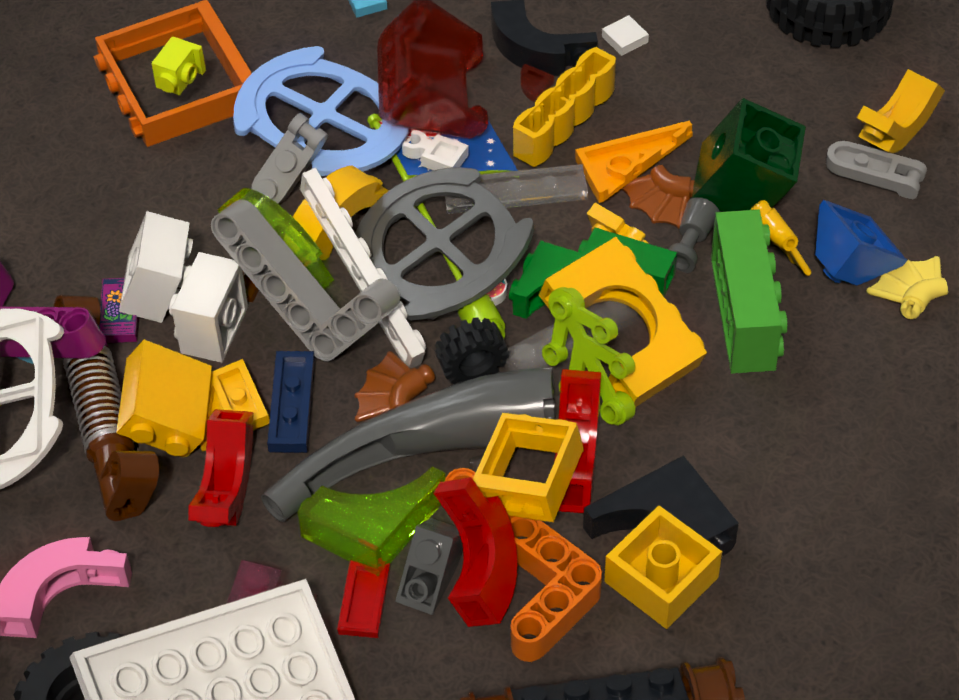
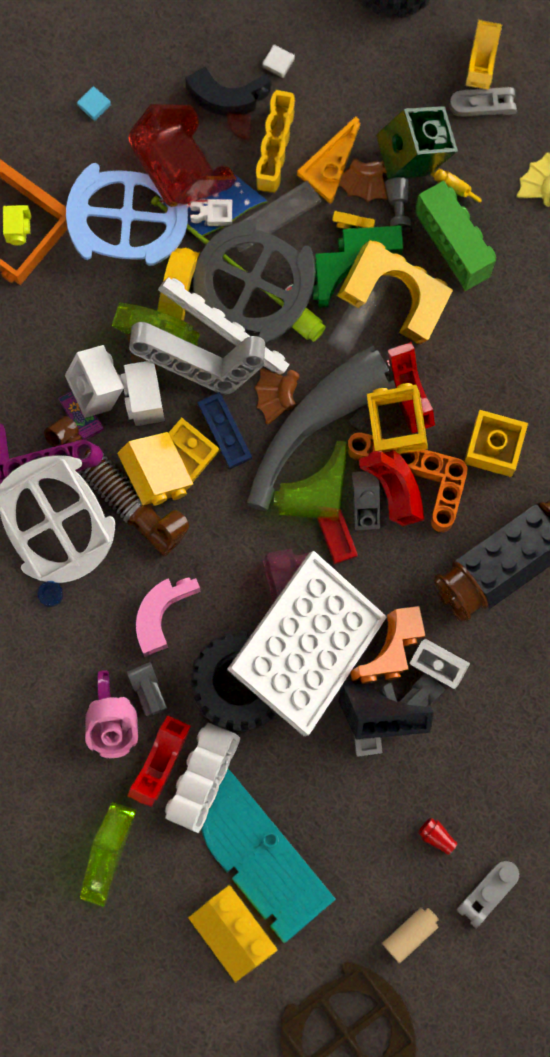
camera: 30 degrees left, 25 degrees up
(225, 469) = (217, 498): red arch -> none
(289, 160) = (129, 266): light grey plate -> none
(471, 350) = (316, 351): black tyre -> none
(570, 315) = (368, 306): lime plant -> none
(677, 490) = (477, 394): black arch -> none
(853, 246) = (498, 169): blue slope -> none

